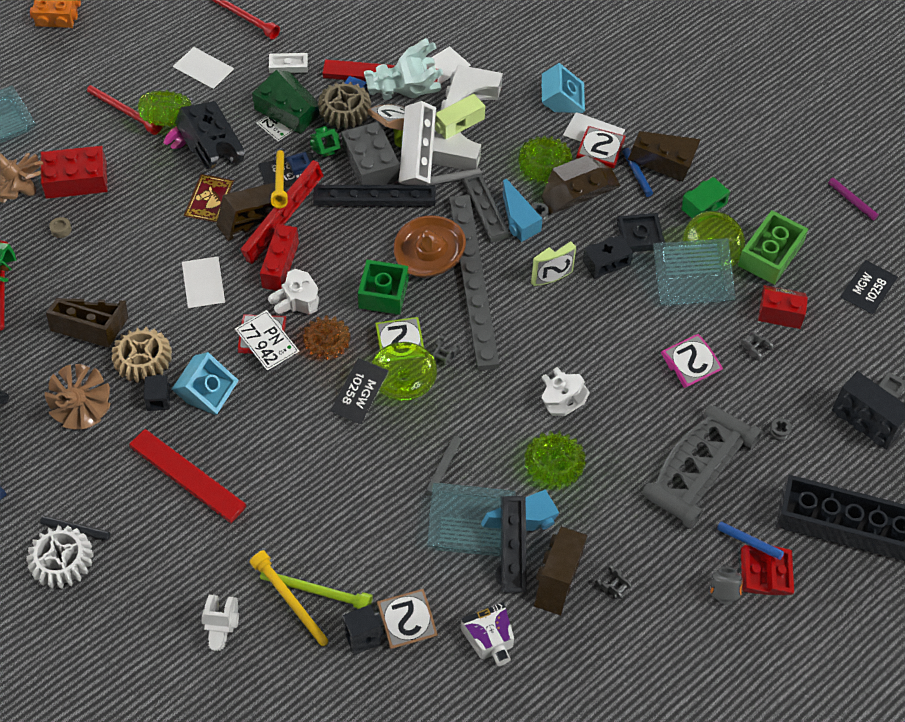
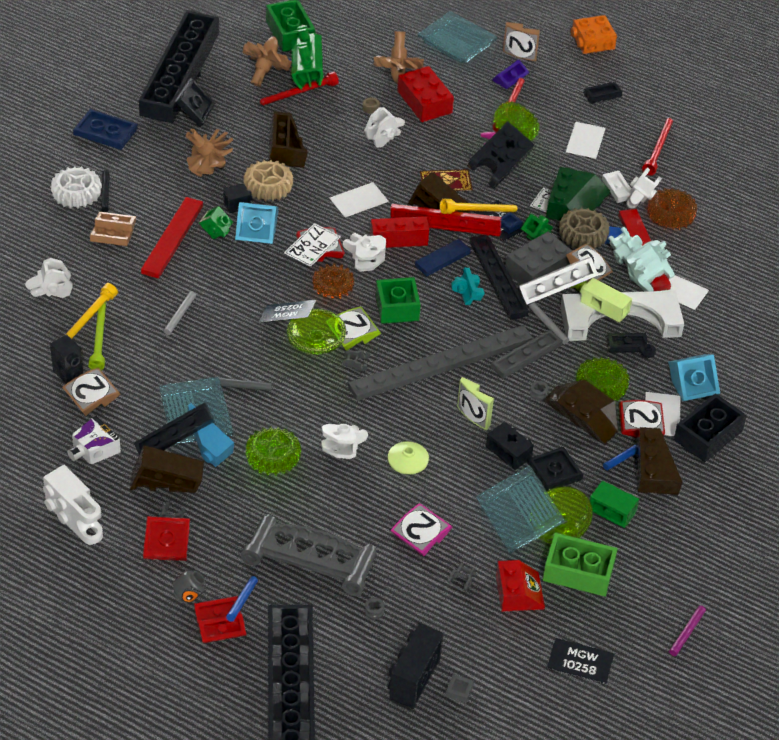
camera: 70 degrees right, 10 degrees down
(41, 65) = (521, 41): none -> slope
(75, 94) = (511, 74): none -> dark purple slope
(114, 222) = (384, 127): none -> white hinge
(142, 31) = (602, 92): none -> black tile
(146, 534) = (113, 228): none -> medium nougat slope
(193, 422) = (216, 222): none -> green brick
(311, 41) = (641, 189): none -> white hinge
(313, 498) = (179, 313): none -> light grey bar
(325, 234) = (442, 257): none -> dark blue tile
(338, 33) = (672, 208): none -> clear orange gear
(380, 224) = (467, 286): none -> teal hips
(429, 246) = (457, 320): dark orange hat -> none
(503, 124) = (630, 343): none -> black hinge
(521, 216) = (522, 374): dark azure slope -> none
(588, 352) = (408, 457): none -> yellowish green dish
(589, 672) = (73, 504): none -> white brick
(634, 100) = (710, 427): none -> black brick
(649, 592) = (166, 538): none -> red tile

